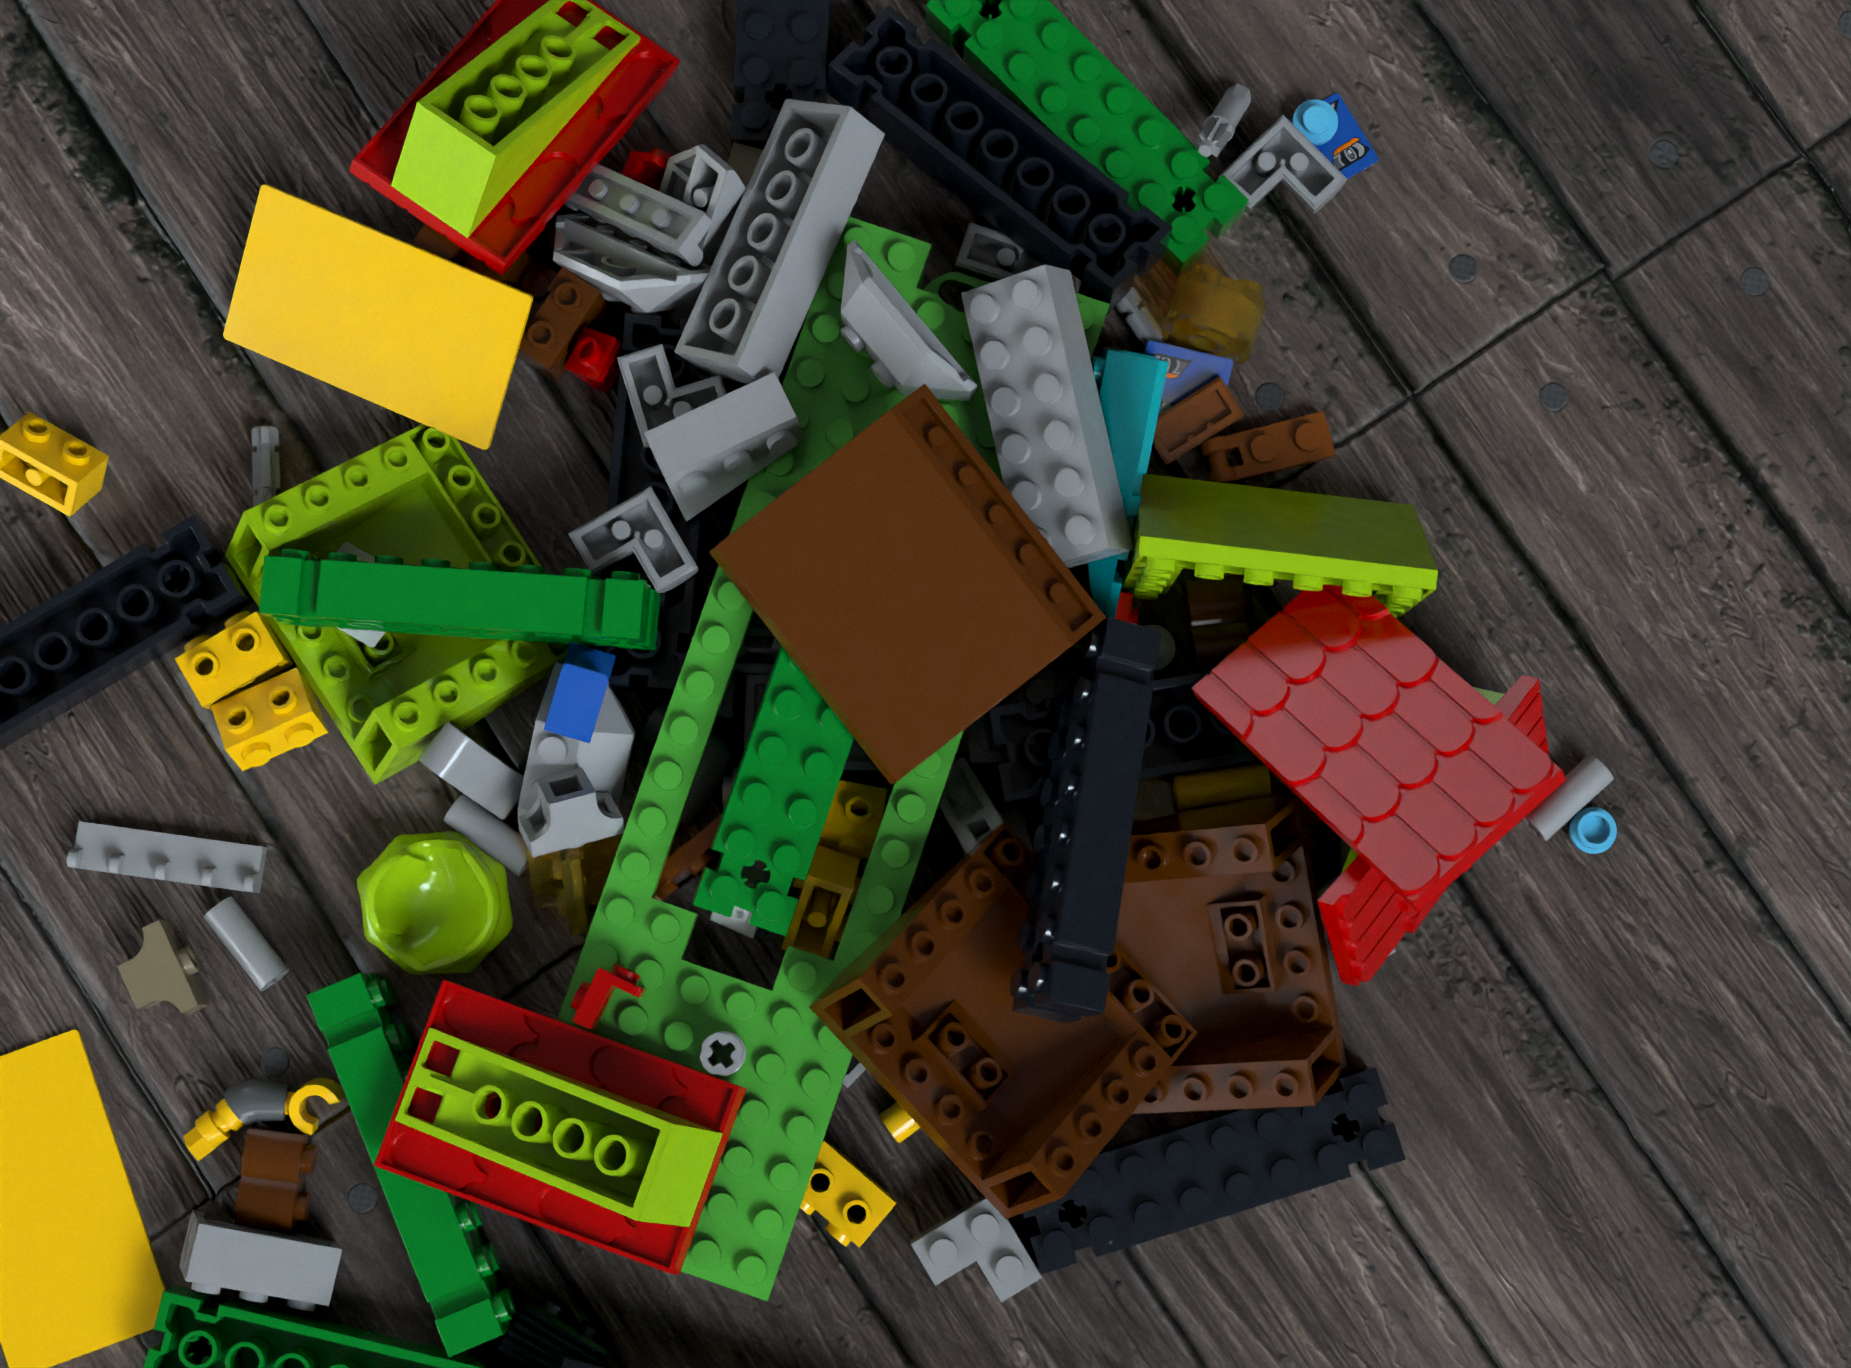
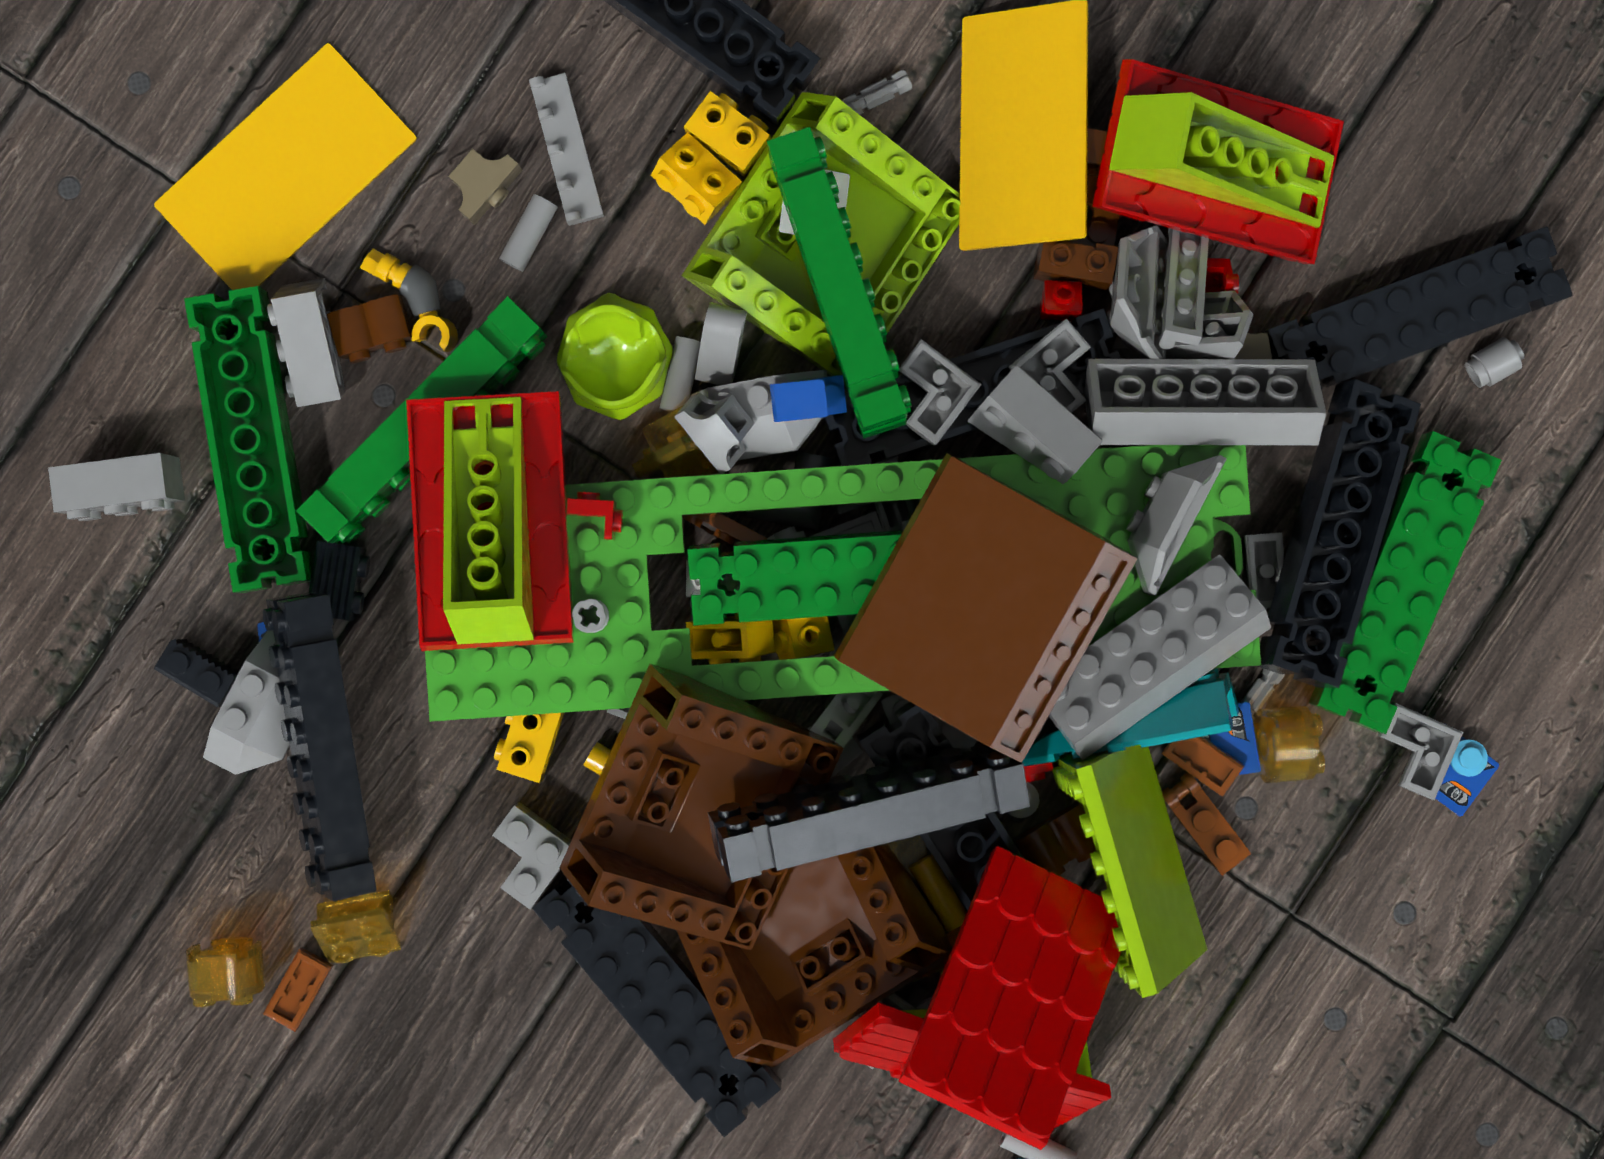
camera: 70 degrees right, 5 degrees up
(1221, 124) = (1436, 689): light grey piece -> none

